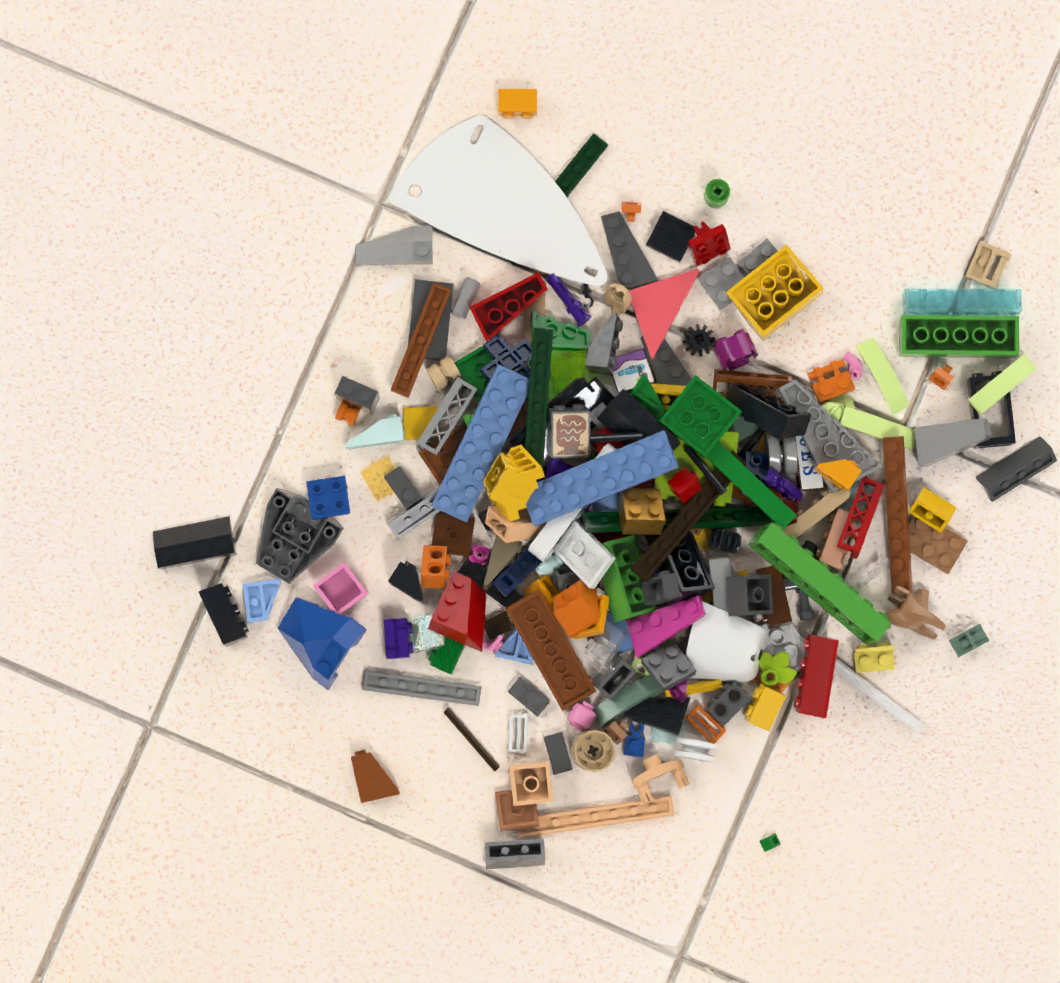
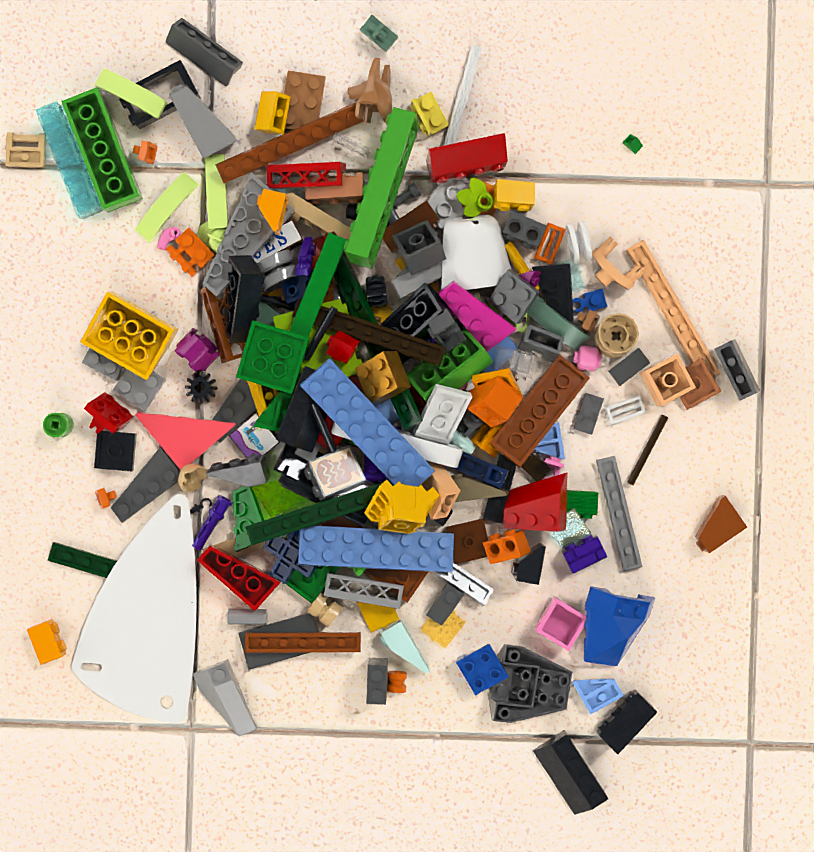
camera: 110 degrees left, 5 degrees up
(479, 550) = (482, 510): dark pink plate -> none

